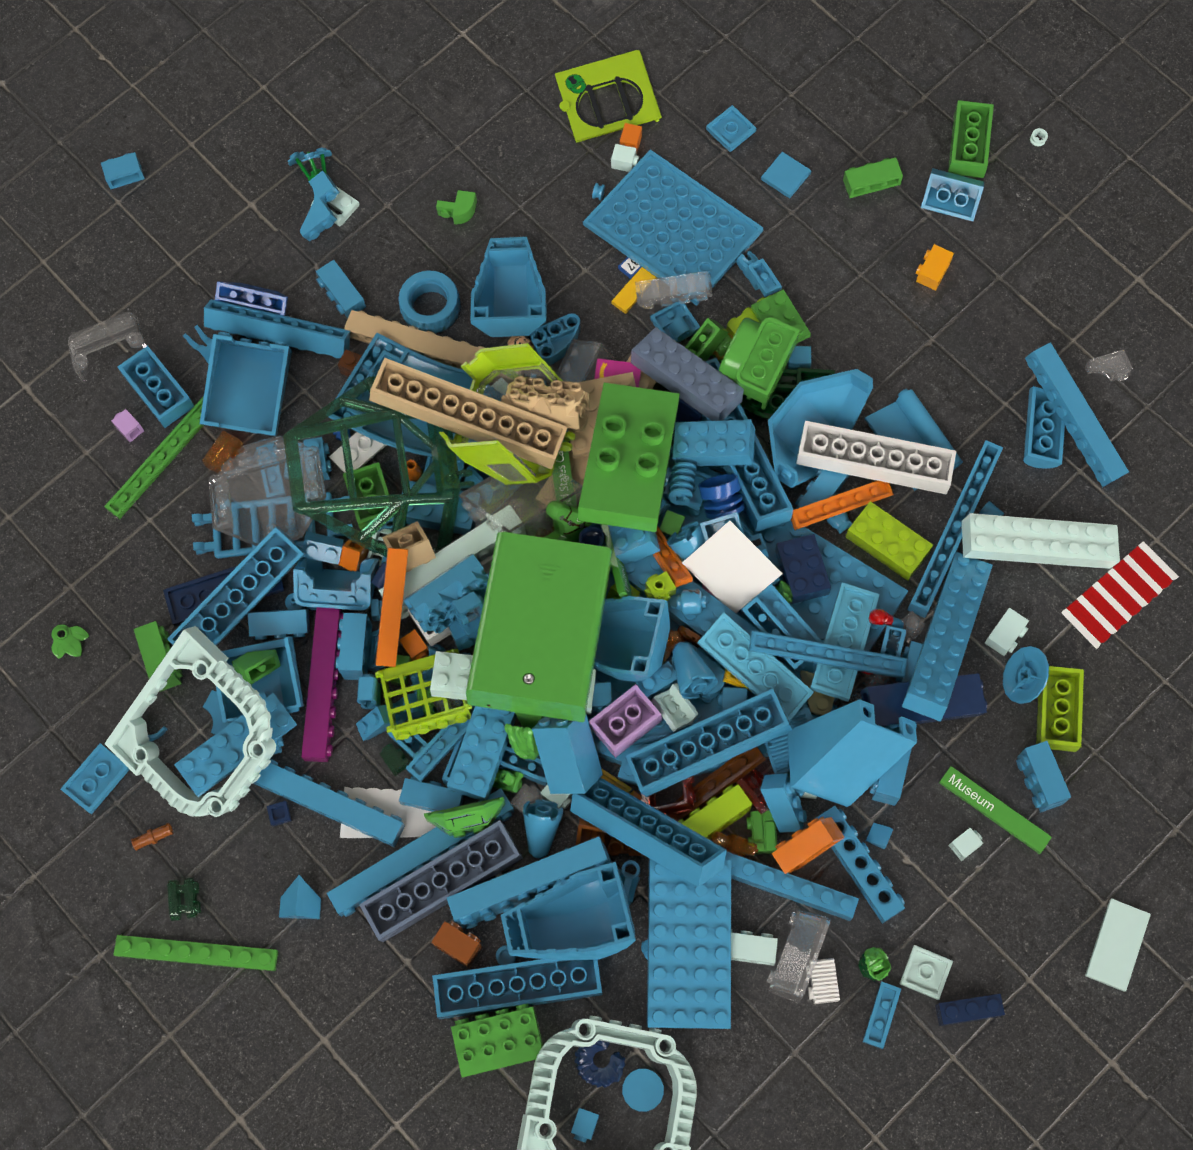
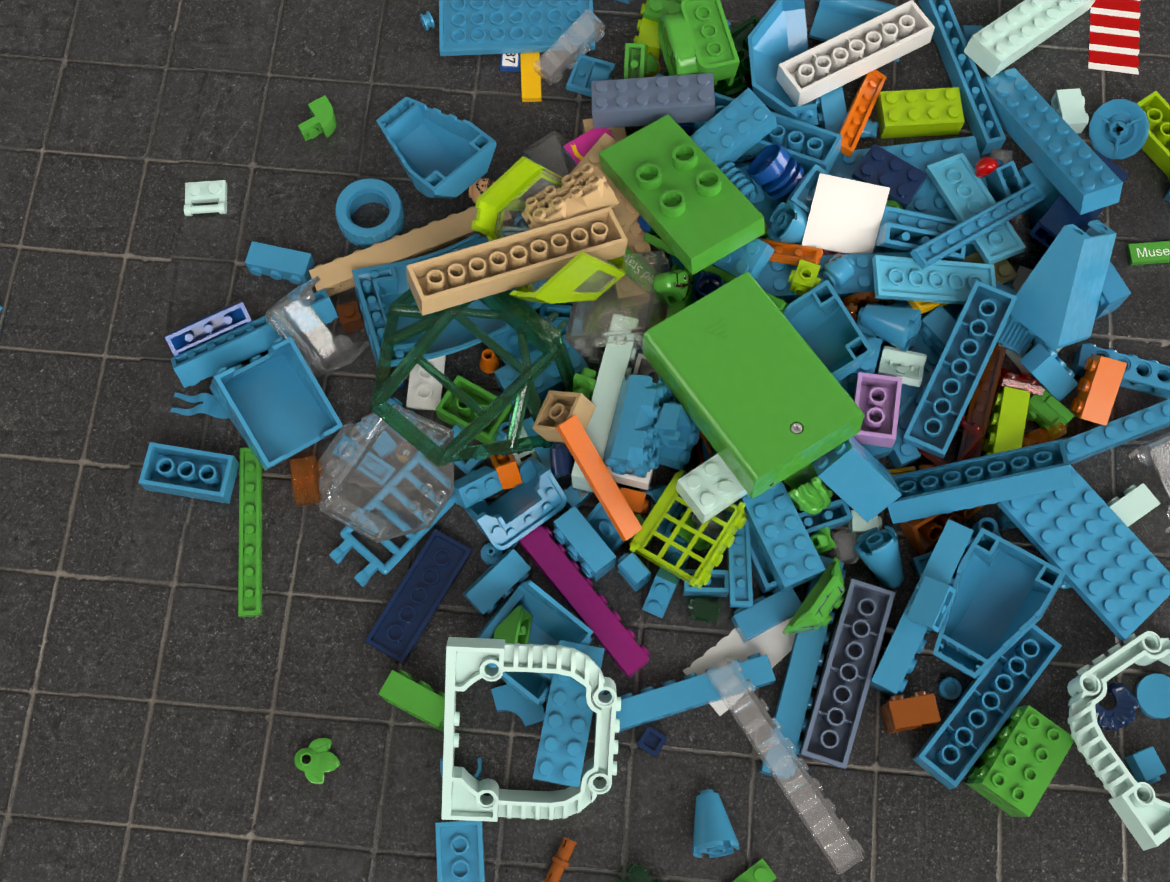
camera: 45 degrees left, 0 degrees up
(102, 335) = (94, 469): clear windscreen -> none
(127, 425) = (193, 528): lavender brick -> none
(243, 587) = (442, 582): dark azure brick -> none
(262, 900) = (712, 827): none -> dark azure cone
(300, 901) = (742, 799): dark azure slope -> none
(310, 354) = (296, 319): none -> clear windscreen
(319, 153) = (168, 184): plant -> none
(320, 215) = (203, 213): dark azure arch -> none
(340, 901) = (785, 766): none -> clear brick
(445, 537) = (585, 382): none -> bright green hips
(526, 880) = (930, 603): none -> dark azure brick
(555, 343) = (510, 151): dark azure beam -> none
(879, 835) = (1131, 340): dark azure slope -> none

